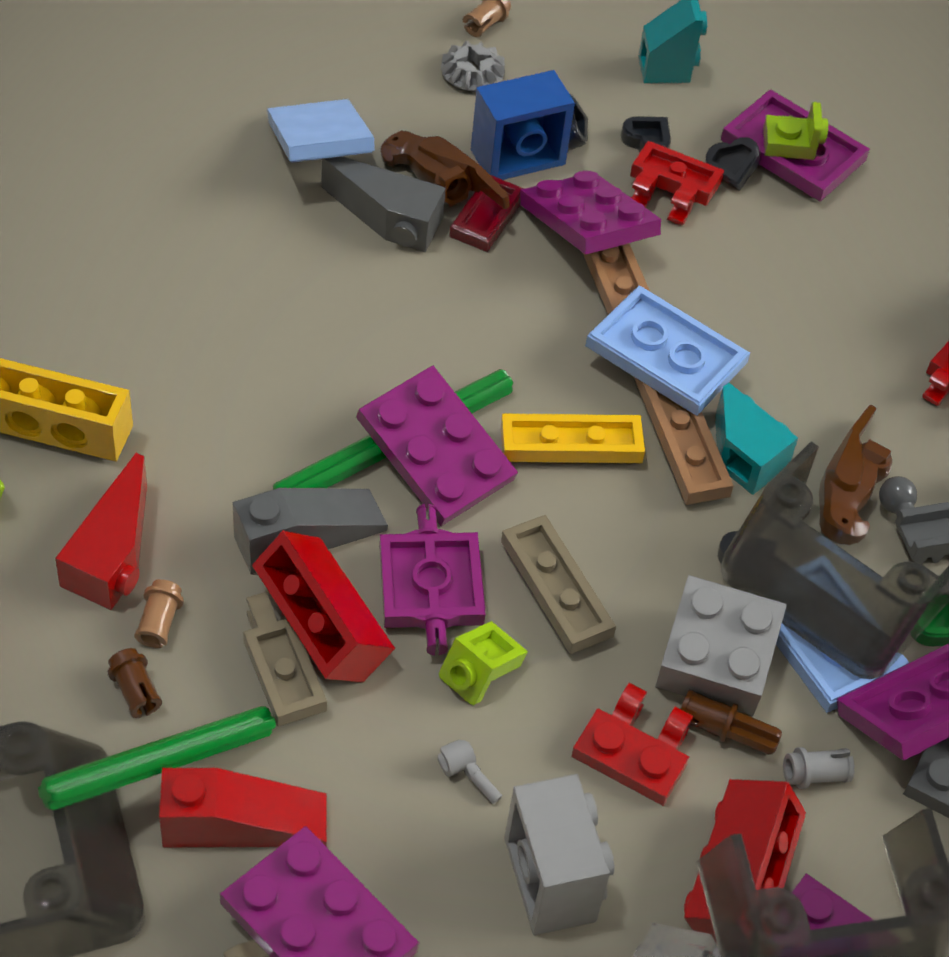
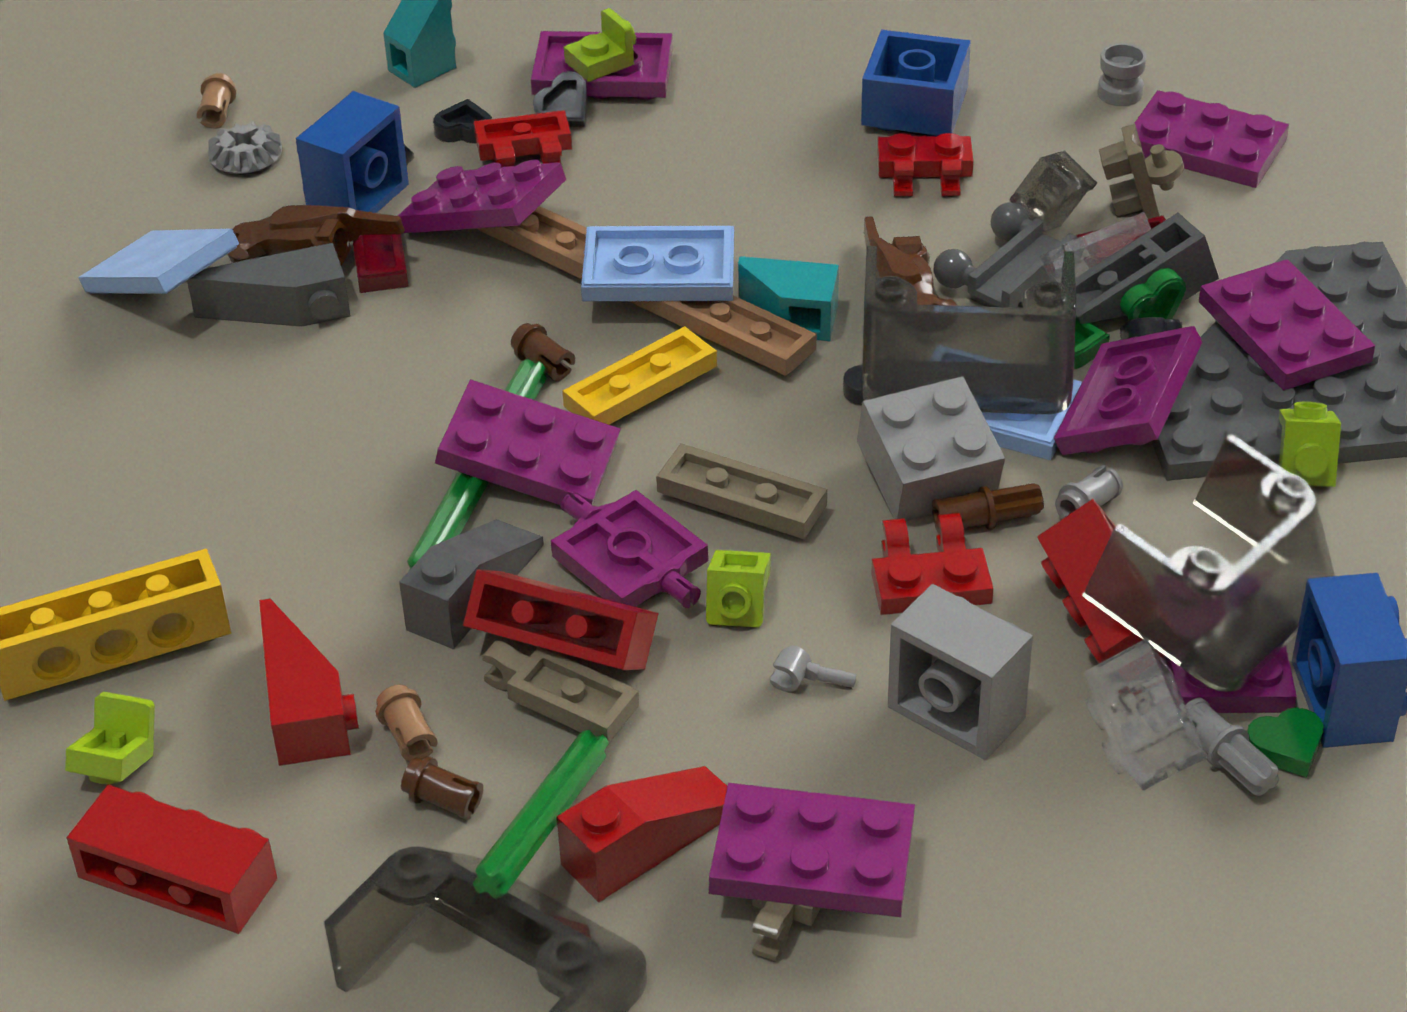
camera: 30 degrees left, 10 degrees down
(522, 359) = (532, 343): none -> reddish brown pin

